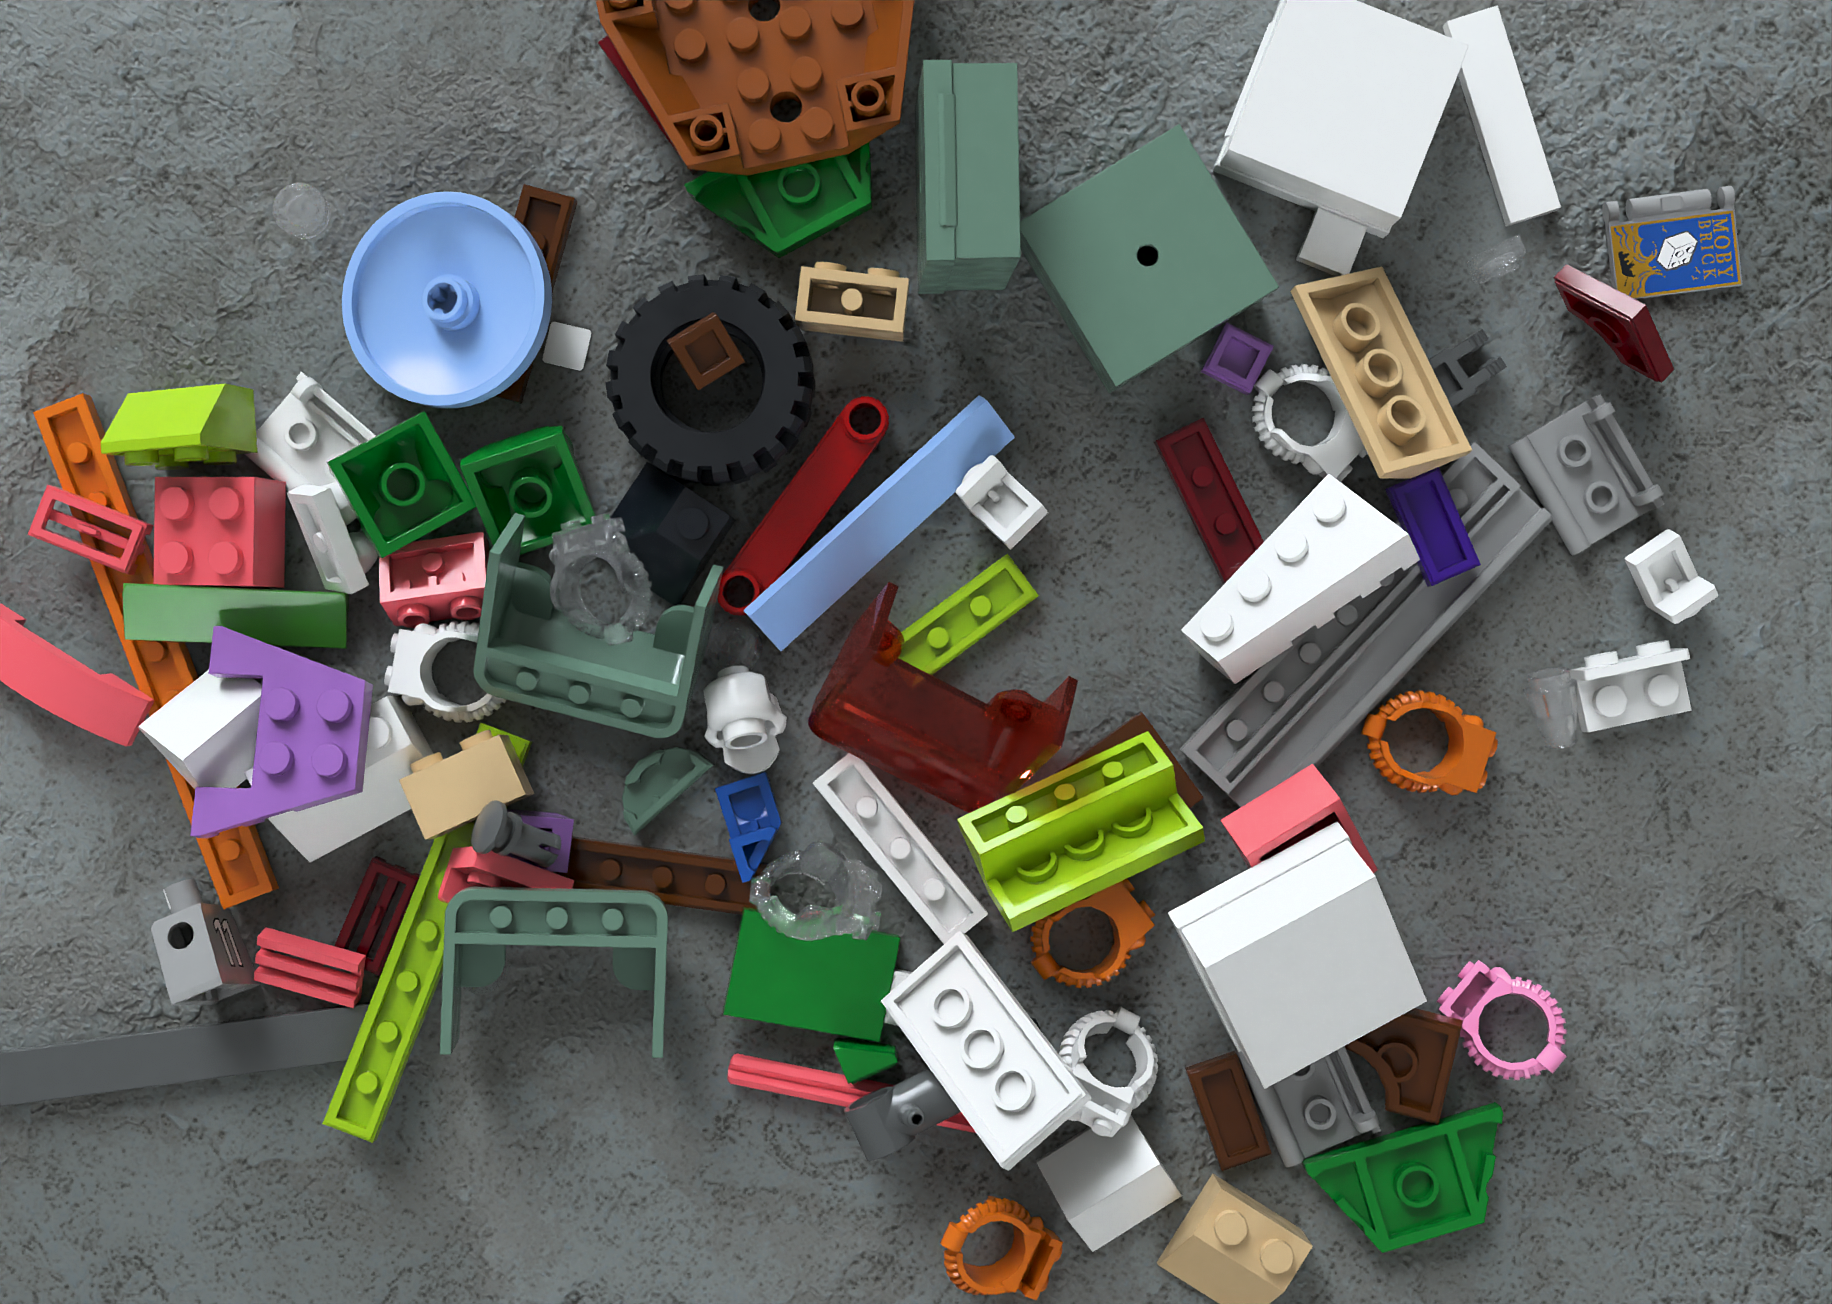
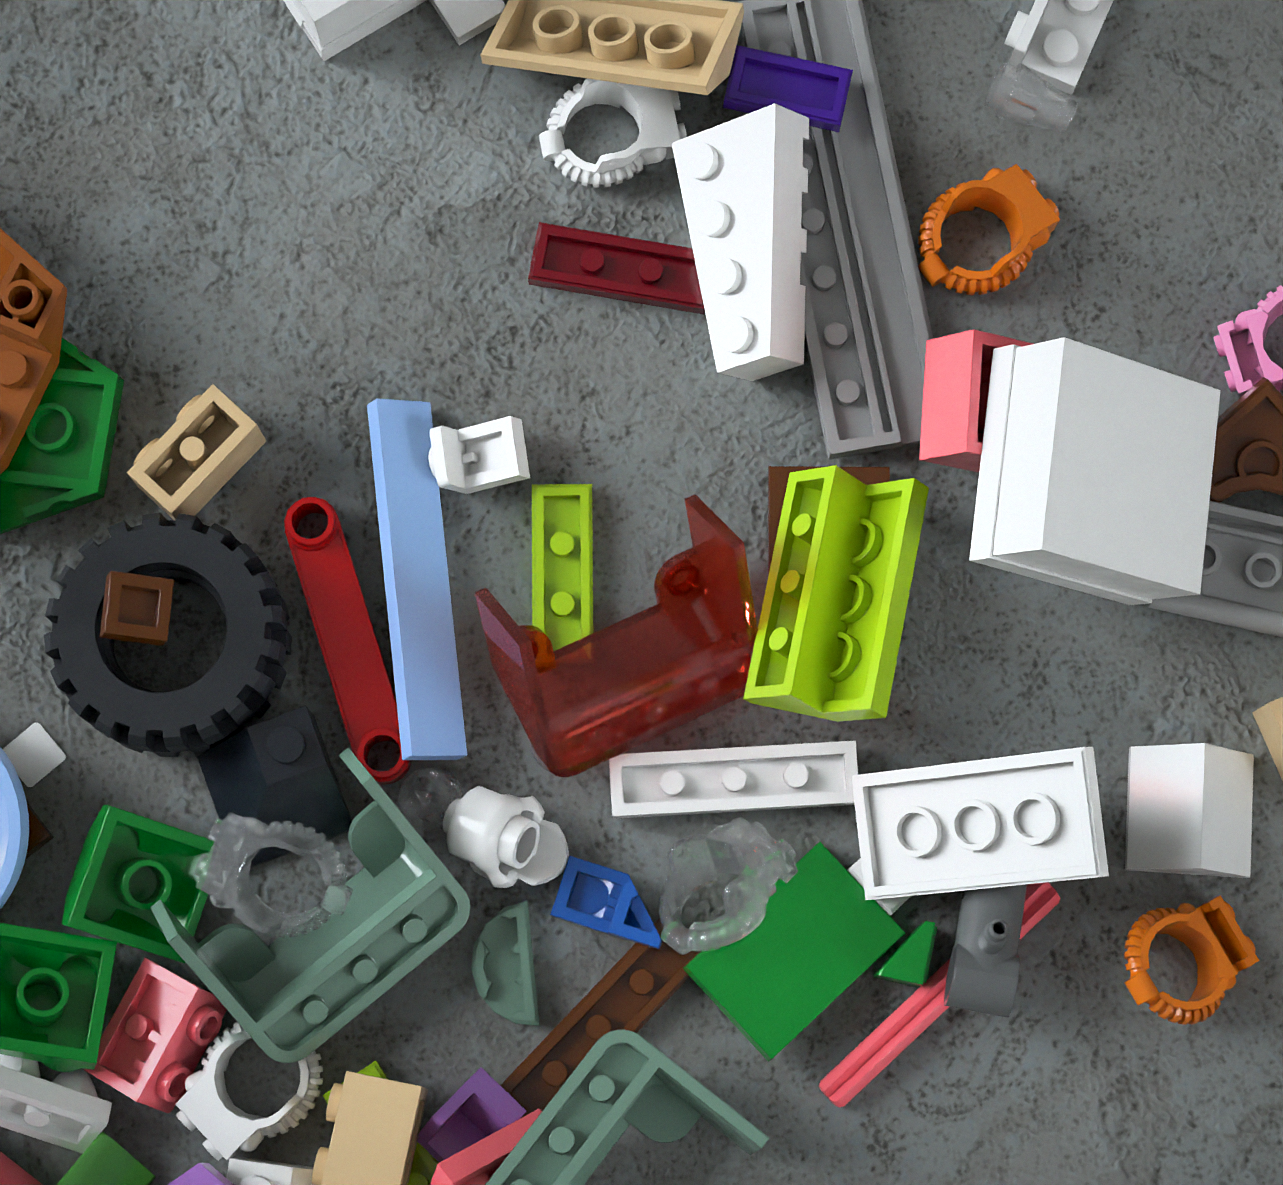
camera: 55 degrees left, 10 degrees down
(506, 834) = (444, 1129): dark grey pin -> none
(967, 176) = (162, 264): sand green container -> none
(1109, 1105) = (1116, 752): white piece -> none
(1129, 924) = (956, 617): orange piece -> none
(1144, 258) = (356, 170): sand green container -> none
(1228, 1110) = (1201, 654): reddish brown tile -> none
(1237, 359) = (508, 157): medium lavender tile -> none

